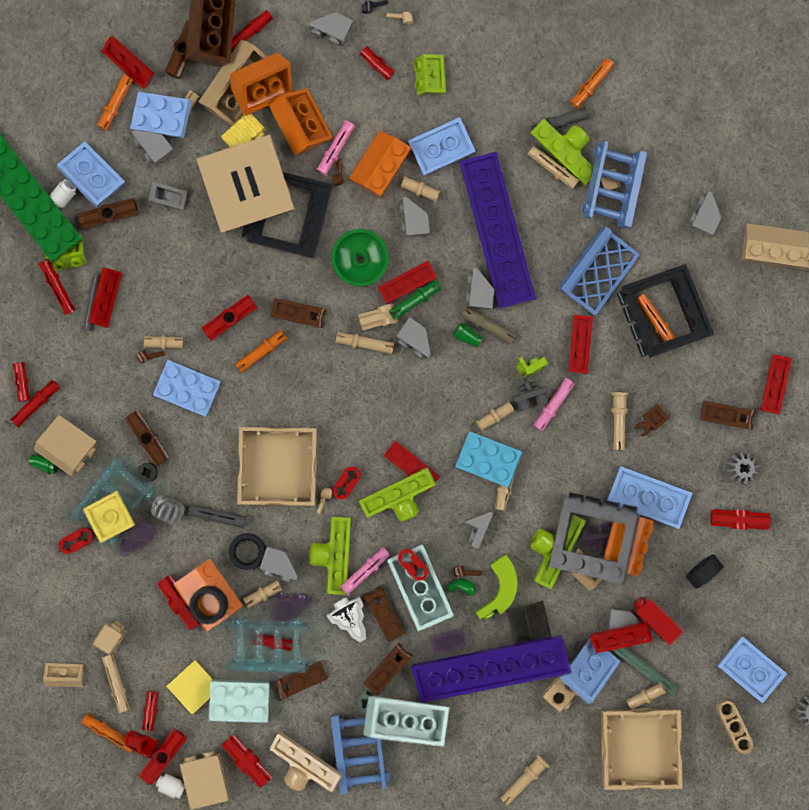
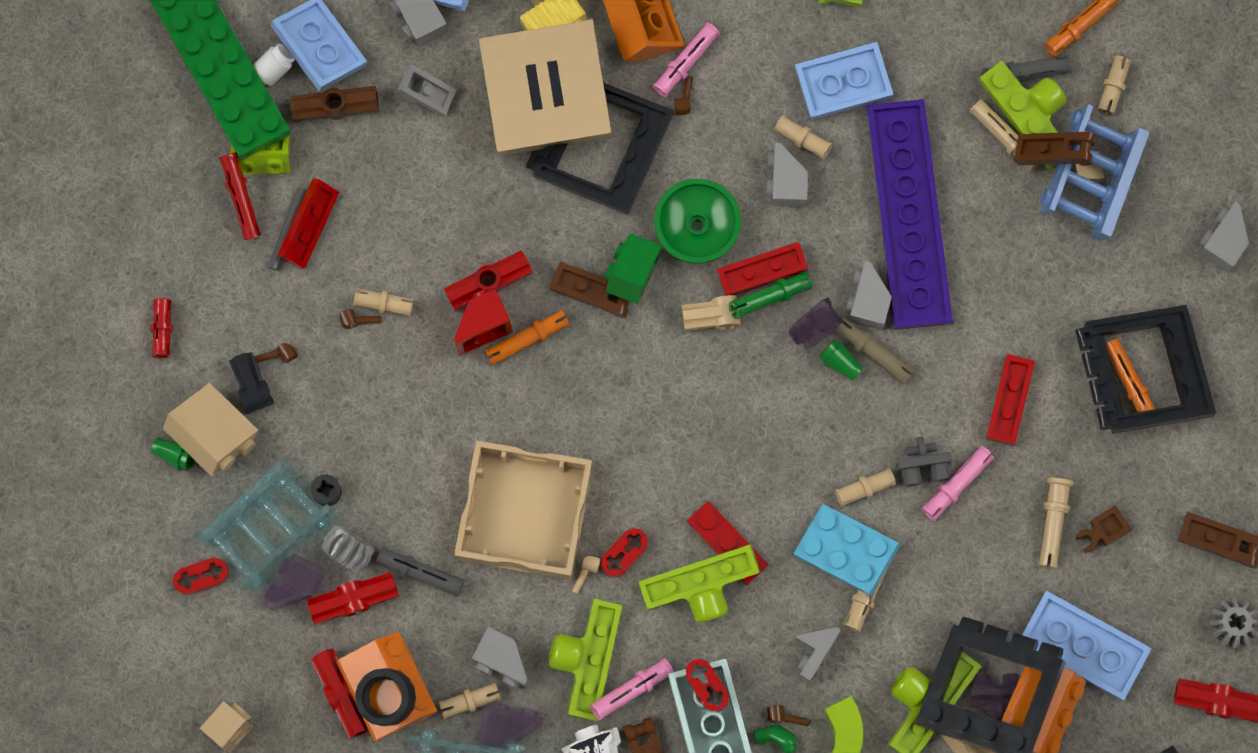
camera: 15 degrees right, 10 degrees down
(42, 396) = (181, 359): red pin -> none
(87, 411) = (253, 389): none -> black piece
(106, 385) = (285, 351): none -> reddish brown hand
(109, 516) = (257, 544): light yellow tile -> none
(139, 428) = (328, 422): reddish brown piece -> none
(176, 540) = (353, 597): none -> red piece
(187, 388) = (407, 375): light blue plate -> none
(230, 347) = (482, 322): none -> red slope
(232, 551) = (435, 624): black tyre -> none
(323, 295) = (632, 268): none -> green brick
(364, 342) = (673, 344): tan pin -> none
(380, 164) = (750, 92): orange slope -> none
(415, 336) = (762, 350): light grey slope -> none
(447, 315) = (815, 324): none -> clear purple hips
(533, 367) = (933, 422): lime bracket -> none
(585, 261) = (1036, 278): medium blue fence -> none
(586, 175) = (1054, 148): none -> reddish brown plate
(619, 122) = (1114, 85): none -> tan pin

